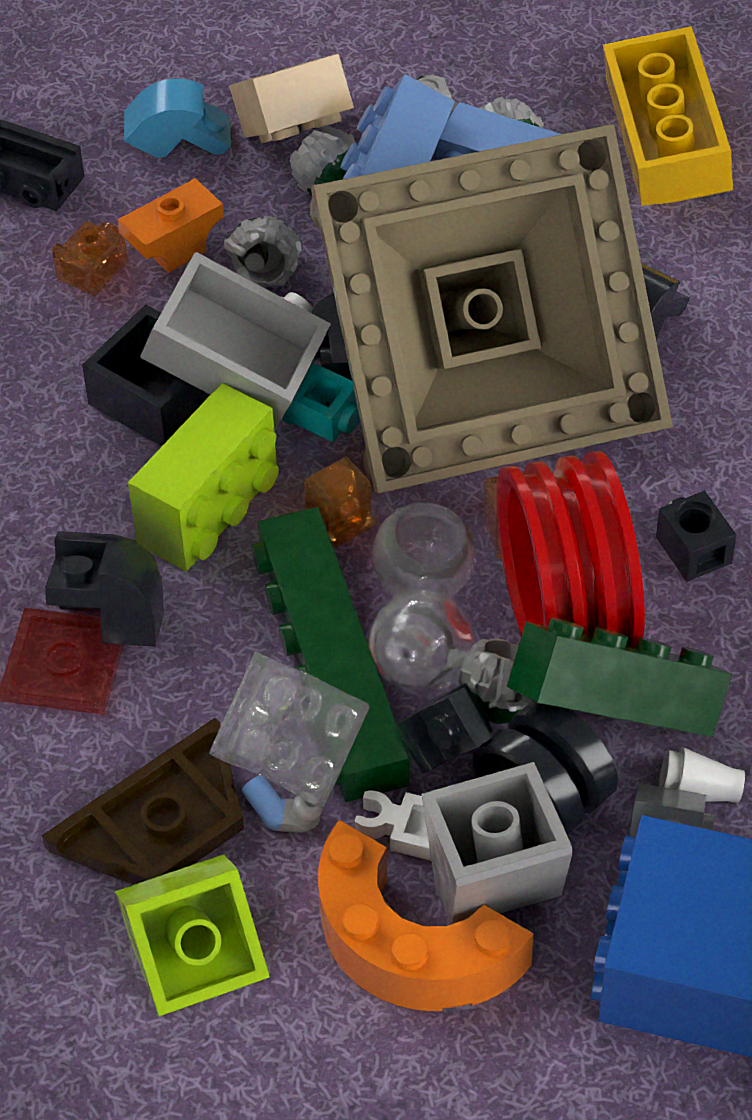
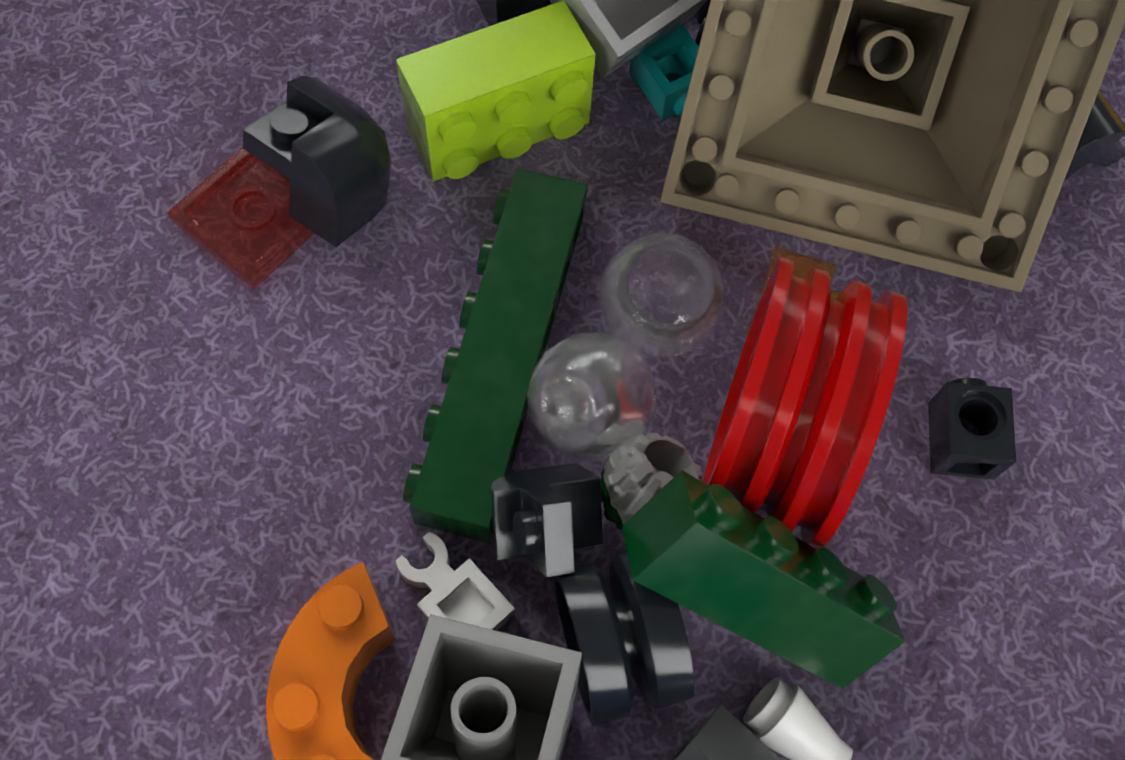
camera: 25 degrees right, 15 degrees up
(157, 816) = (221, 433): dark brown wing -> none
(193, 934) = (149, 588): lime slope -> none
(279, 813) = (341, 501): arm -> none
(289, 728) = (392, 414): clear bracket -> none
(342, 499) = (619, 189): clear orange brick -> none

